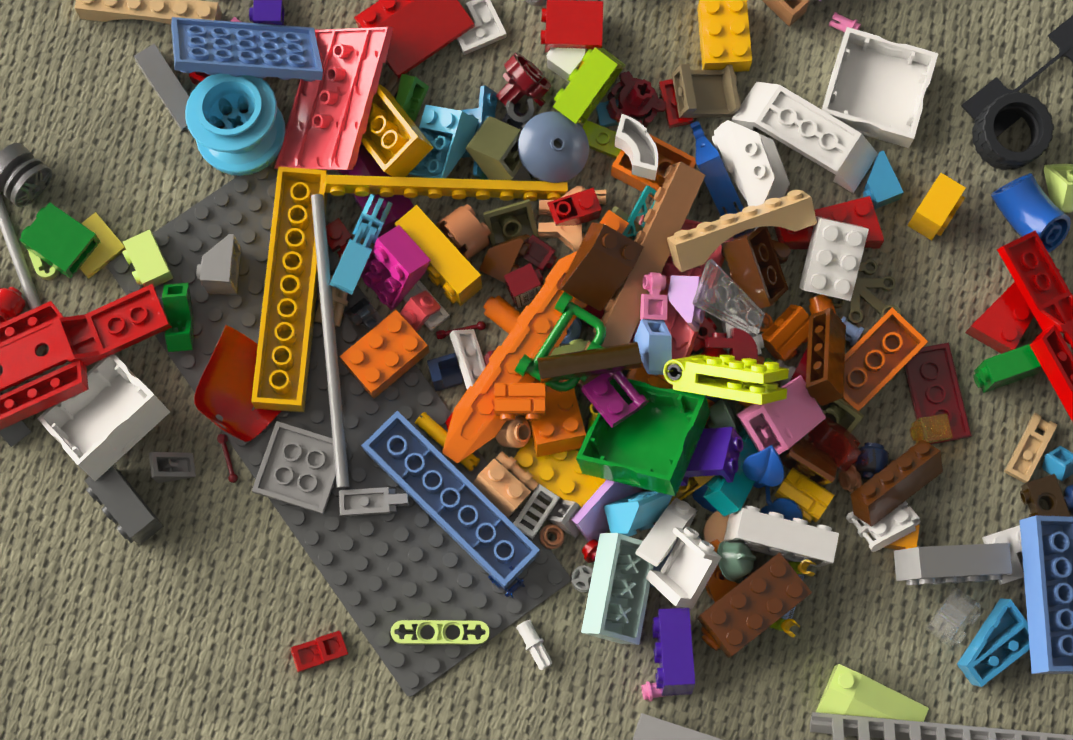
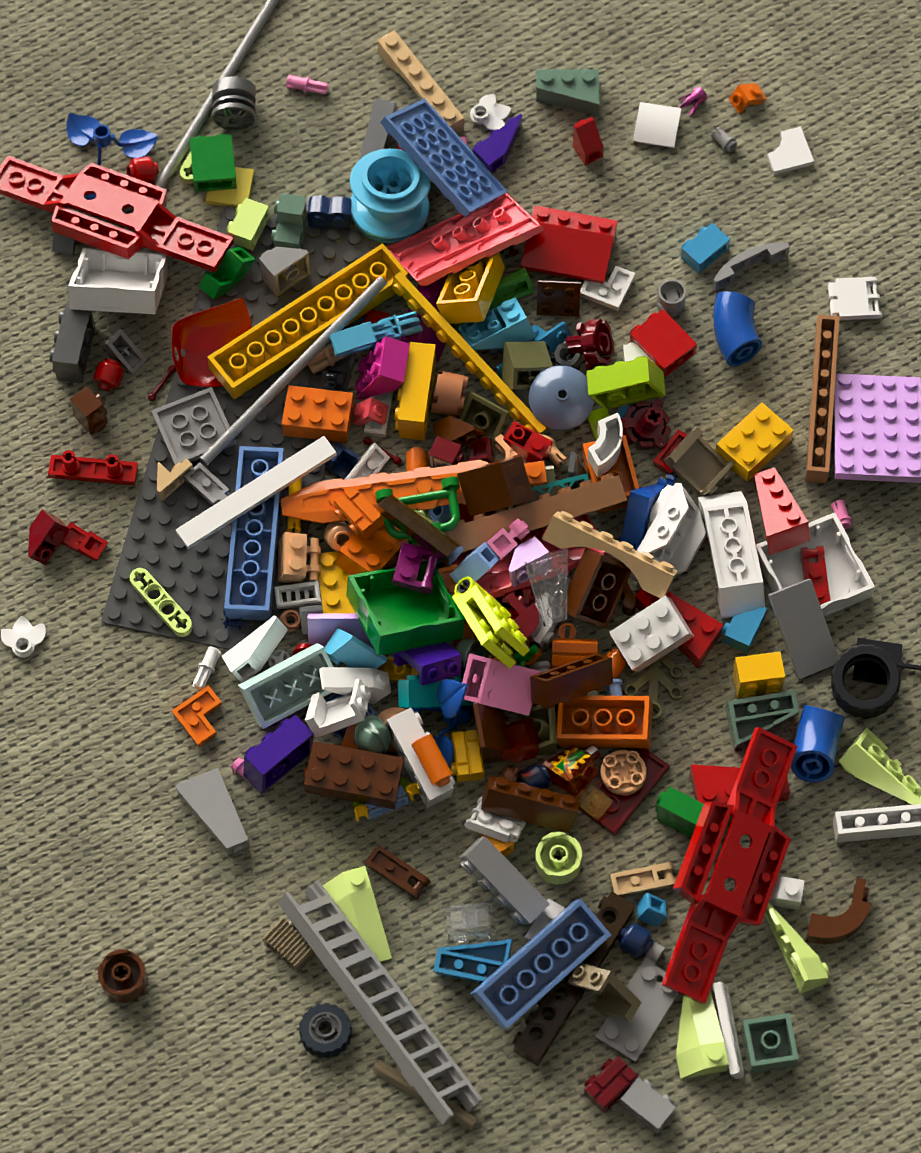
camera: 50 degrees right, 10 degrees down
(56, 101) = (306, 84): none -> bright pink axle
(178, 220) = (290, 221): none -> sand green brick
(179, 497) = (108, 374): none -> red head
(199, 184) = (329, 212): none -> dark blue brick
(203, 543) = (89, 410): none -> reddish brown brick
(258, 586) = (92, 469): none -> red plate
(287, 680) = (45, 536): none -> dark red slope
(331, 533) = (169, 481): none -> tan slope
(420, 469) = (256, 492): none -> white tile
(456, 72) = (558, 298): none -> reddish brown hinge
(559, 594) = (253, 651): none -> white slope
(566, 691) = (192, 715): none -> orange plate
(626, 195) = (575, 469): none -> dark grey slope
(807, 531) = (432, 761): none -> orange brick
(812, 68) = (781, 516): none -> wedge
(856, 640) = (396, 871): none -> reddish brown plate
(882, 90) = (816, 572): none -> red plate
(891, 421) = (573, 768): none -> clear red torso
(926, 384) = (623, 772): none -> light nougat tile
(927, 137) = (803, 628): none -> light grey tile
(969, 237) = (759, 711): none -> sand green wedge
(973, 498) = (567, 849): none -> yellowish green brick

